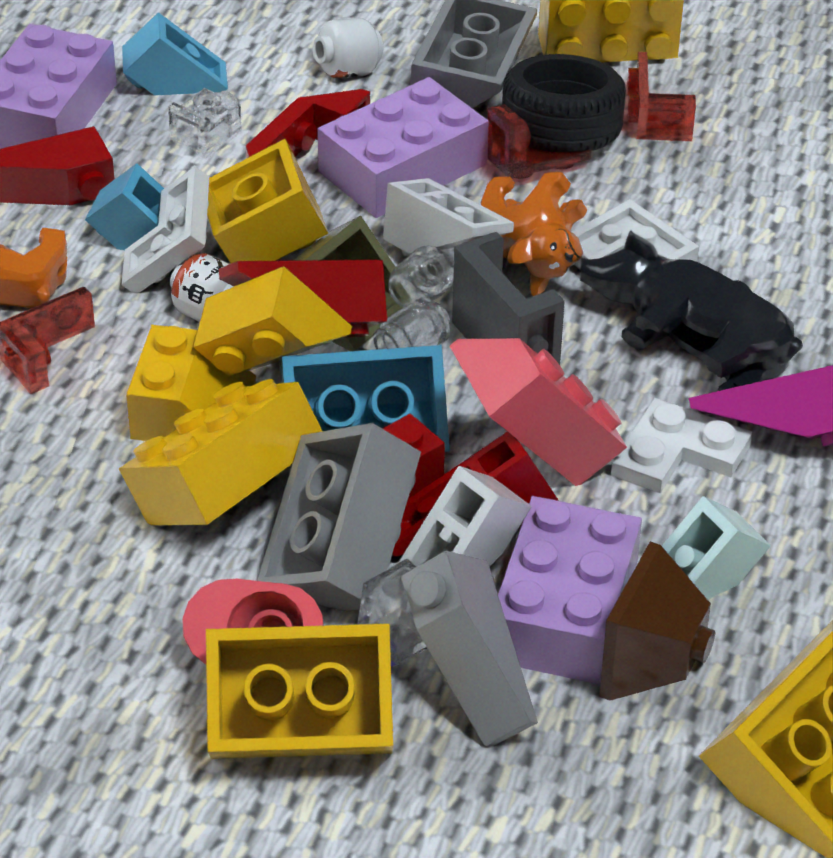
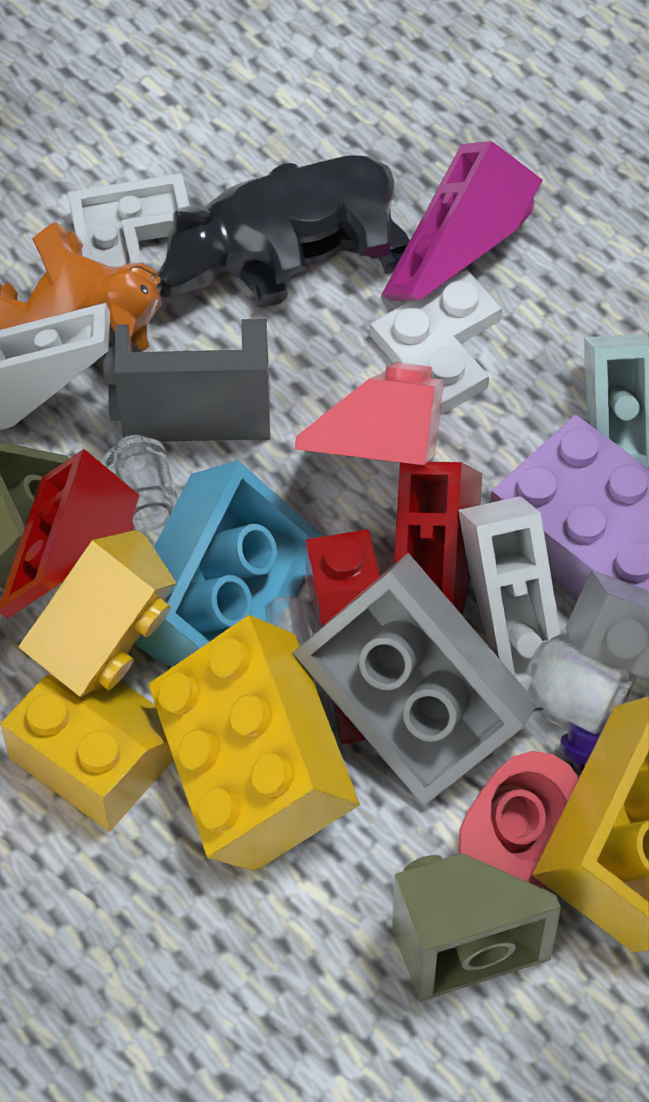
camera: 60 degrees left, 15 degrees up
(139, 618) = (468, 923): none -> olive slope
(421, 274) = (87, 422): clear brick -> none

